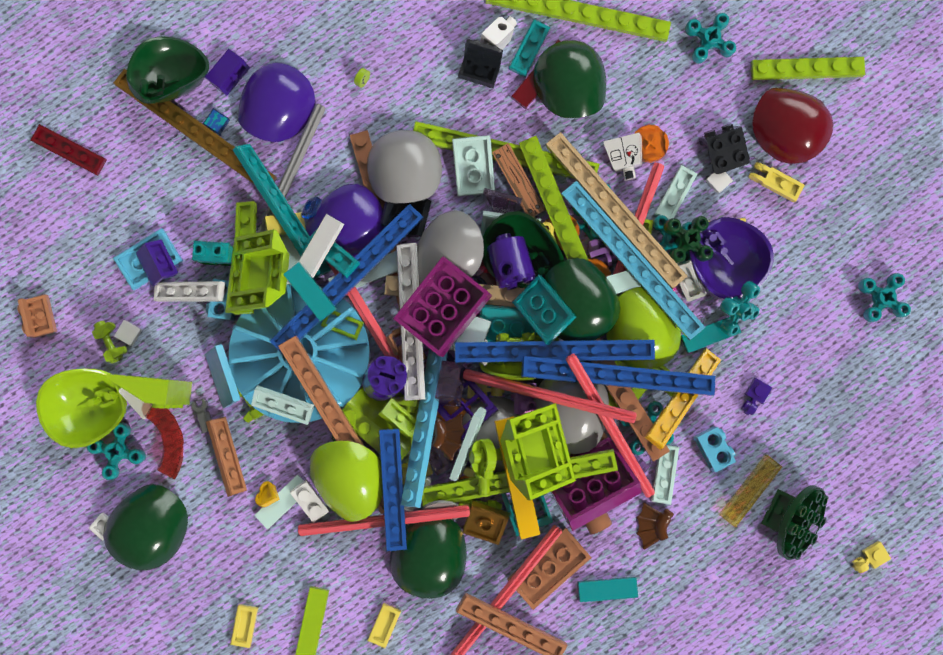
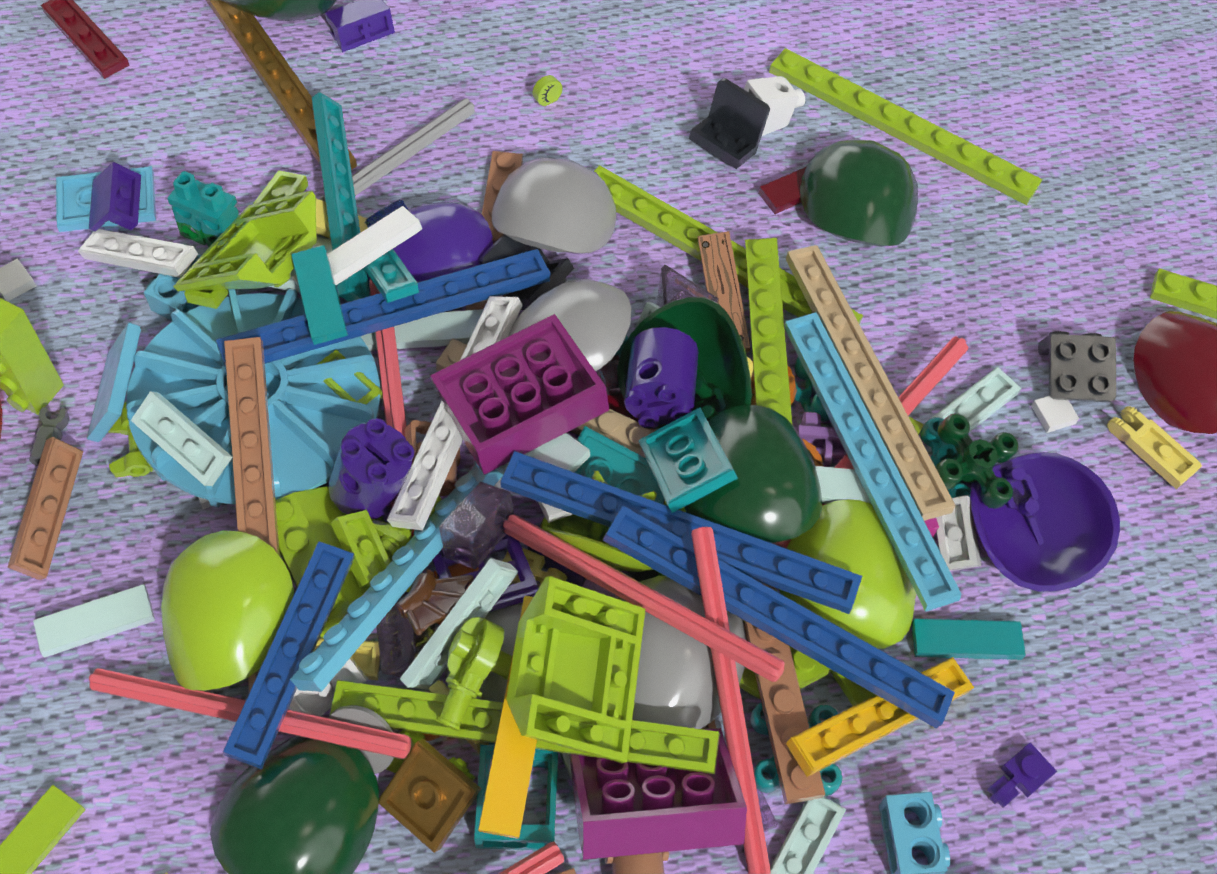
camera: 20 degrees right, 25 degrees down
(216, 121) = (311, 72): tile -> none
(267, 495) = (74, 596): yellow tile -> none
(276, 103) = (408, 77): dark purple piece -> none
(309, 501) = (139, 634): white plate -> none
(473, 165) = (661, 237): light aqua tile -> none
(529, 48) = (806, 144): teal tile -> none
(625, 154) = (911, 315): white torso -> none
(654, 143) = (953, 317): orange tile -> none
(716, 42) = (1098, 218): teal gear -> none
(740, 308) = (1034, 602): teal gear -> none

